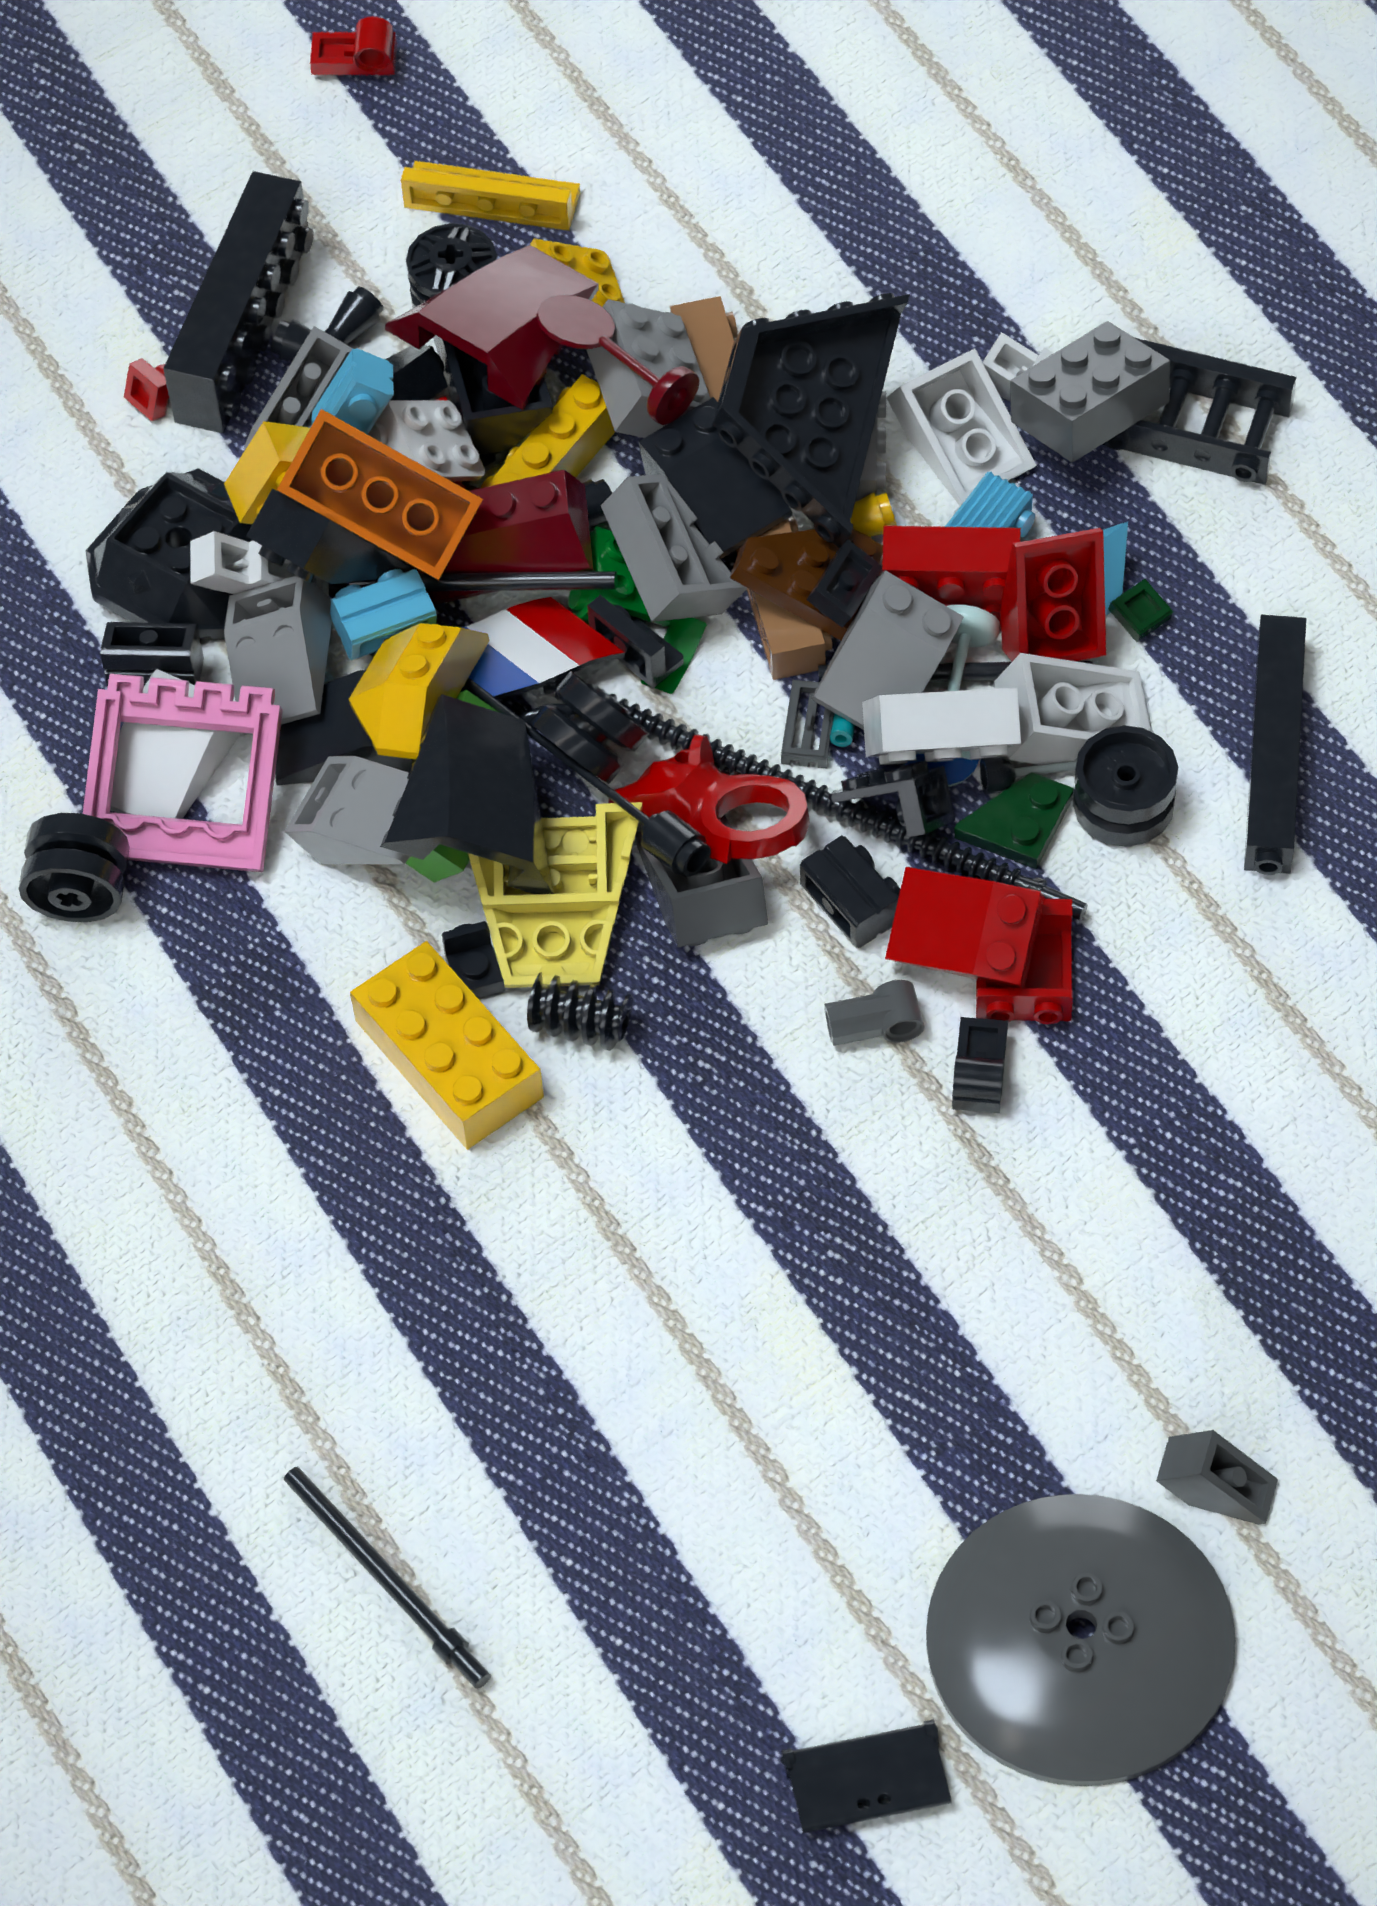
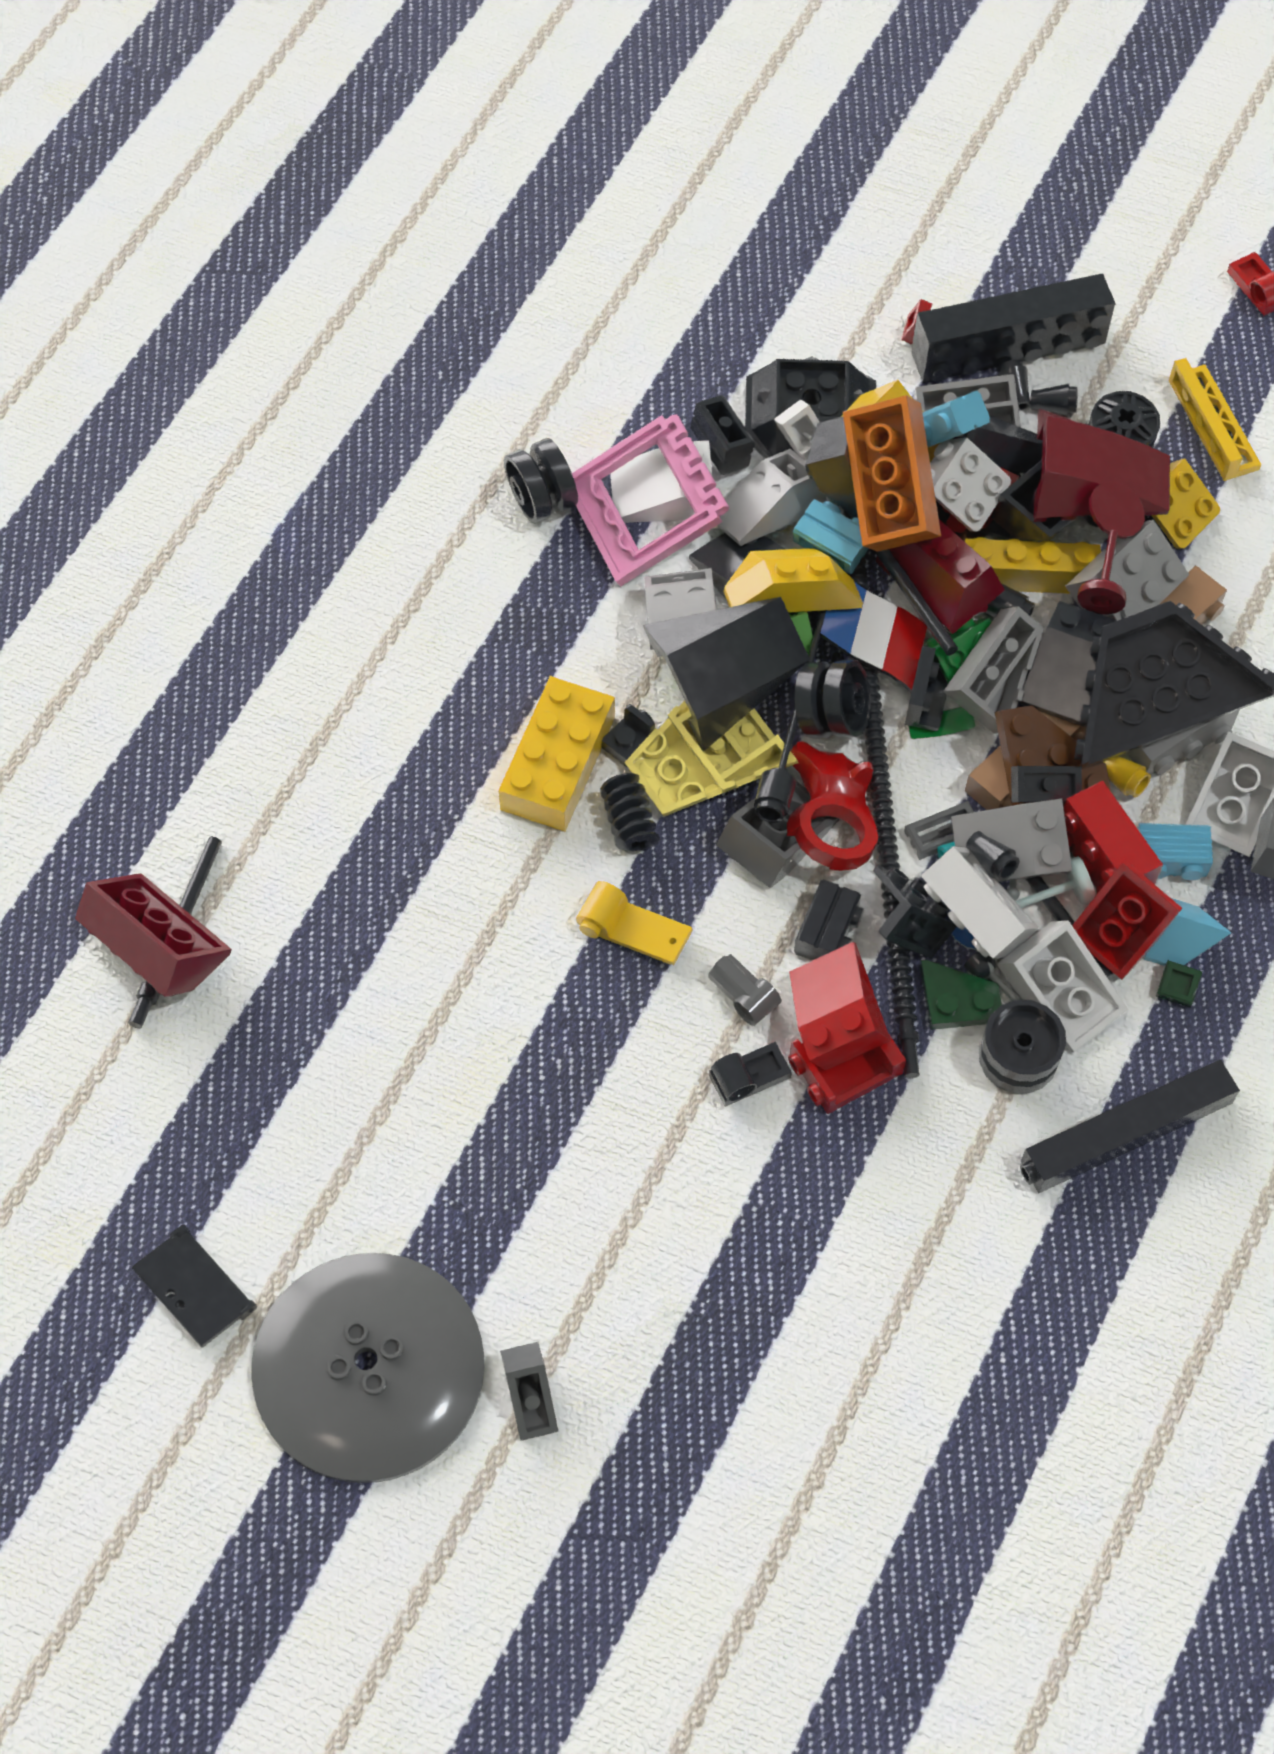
camera: 55 degrees right, 5 degrees up
(382, 1596) = (150, 933): none -> dark red slope
(698, 1100) = (614, 919): none -> yellow door
(899, 676) = (994, 856): none -> black cone

